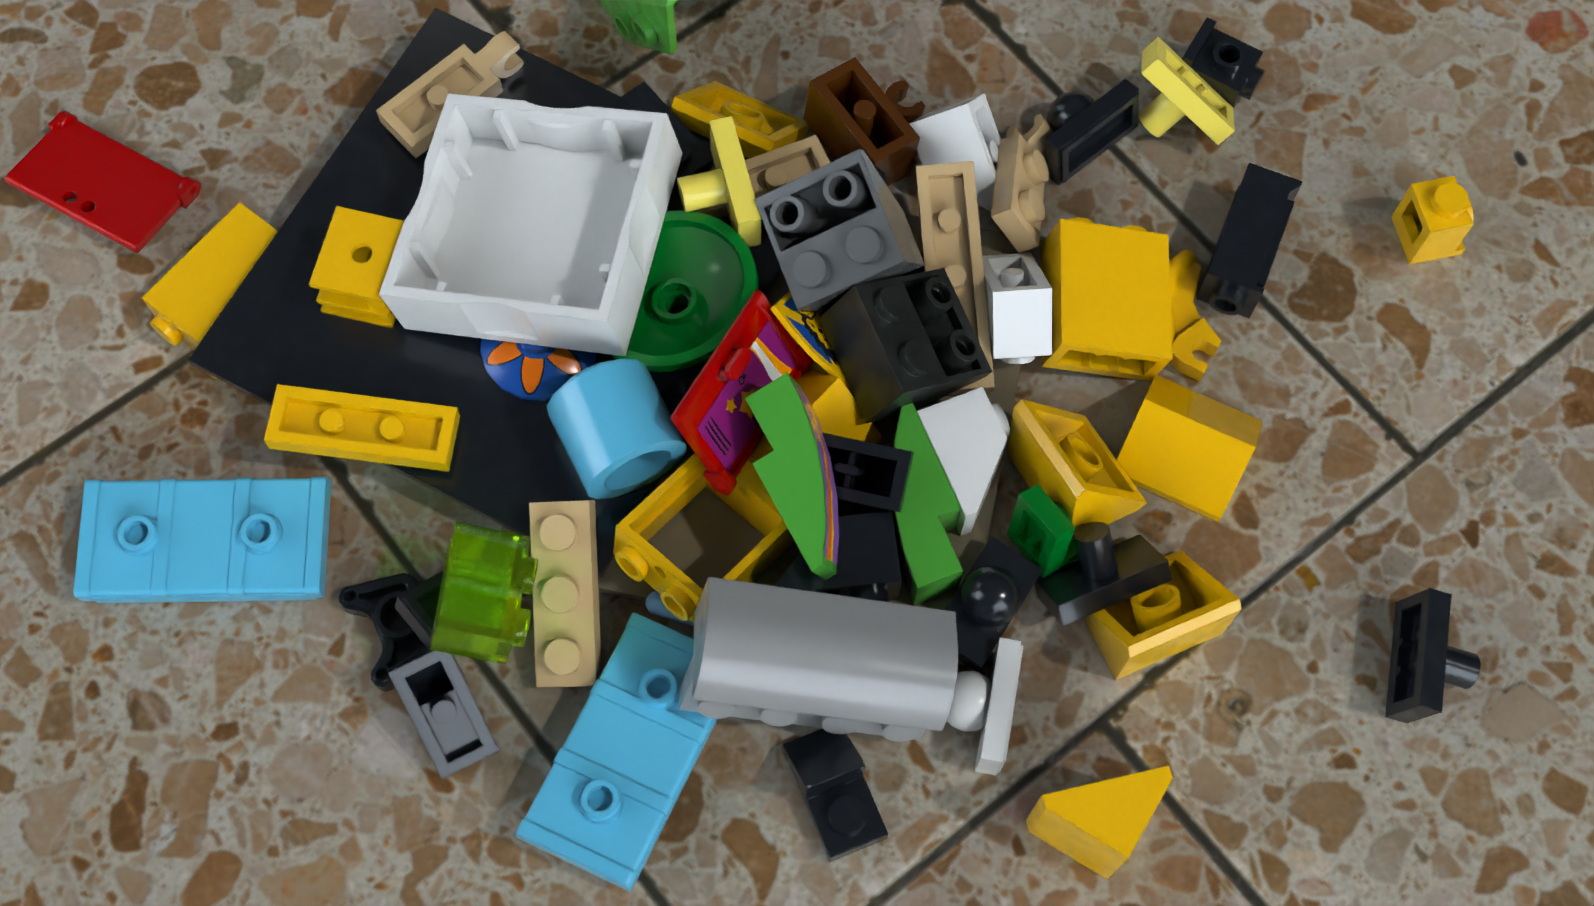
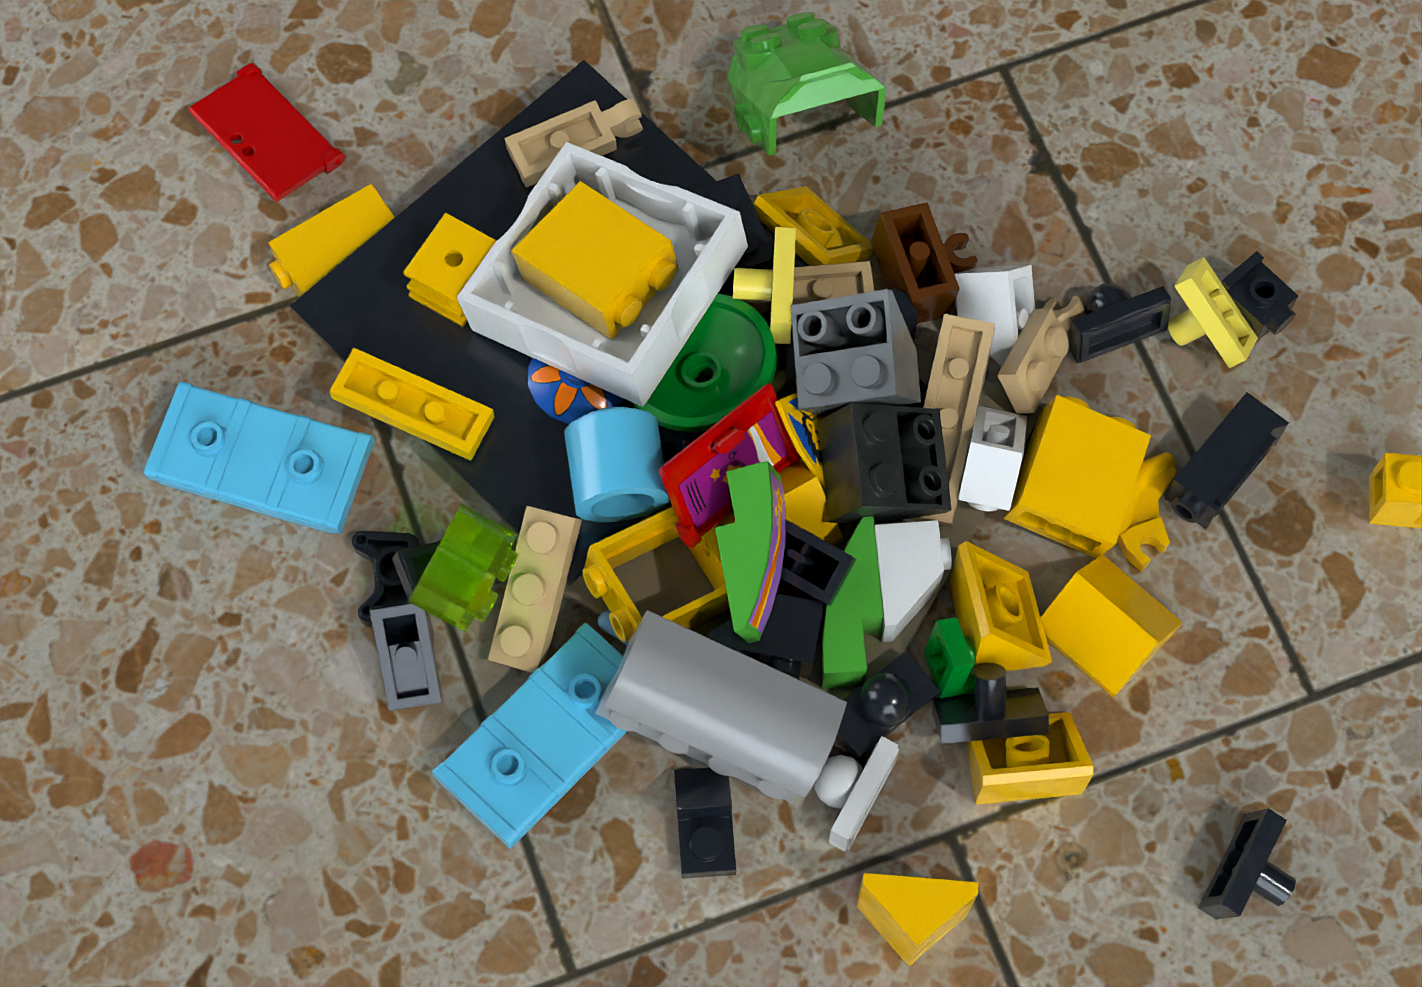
camera: 20 degrees right, 0 degrees up
(522, 211) = (596, 260): none -> yellow brick

